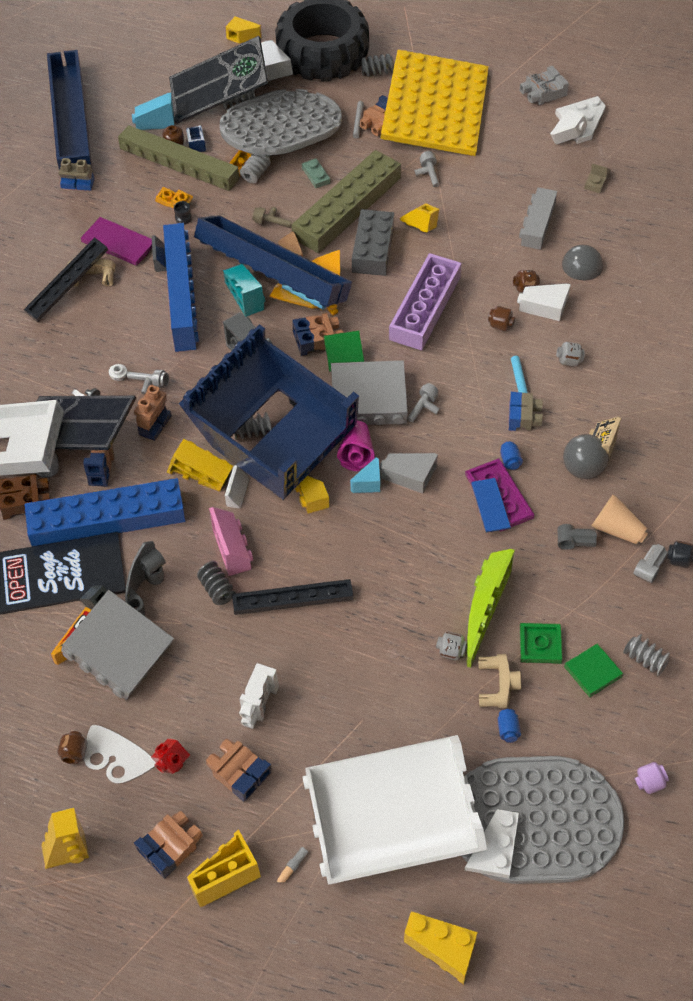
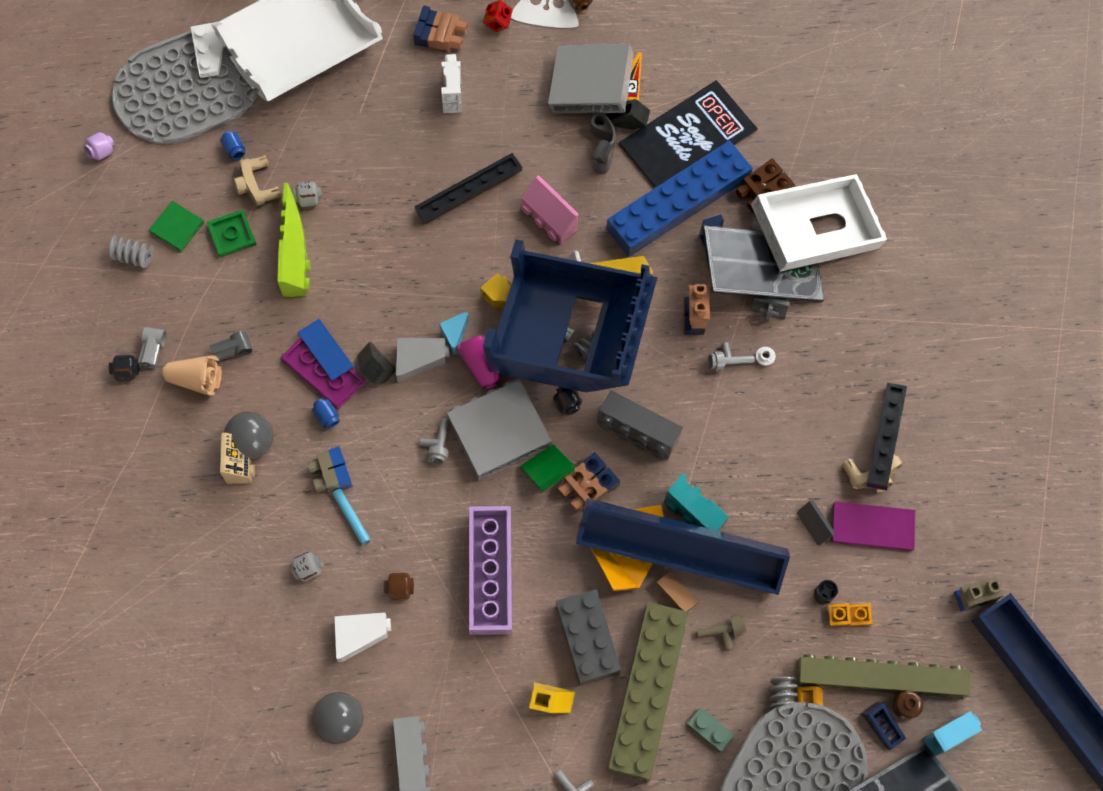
camera: 150 degrees right, 15 degrees up
(180, 287) = (763, 476): blue brick -> none
(215, 583) = (535, 167): dark grey piece -> none
(452, 473) = (375, 364): none -> pearl dark grey slope
(524, 279) = (390, 652): reddish brown head -> none

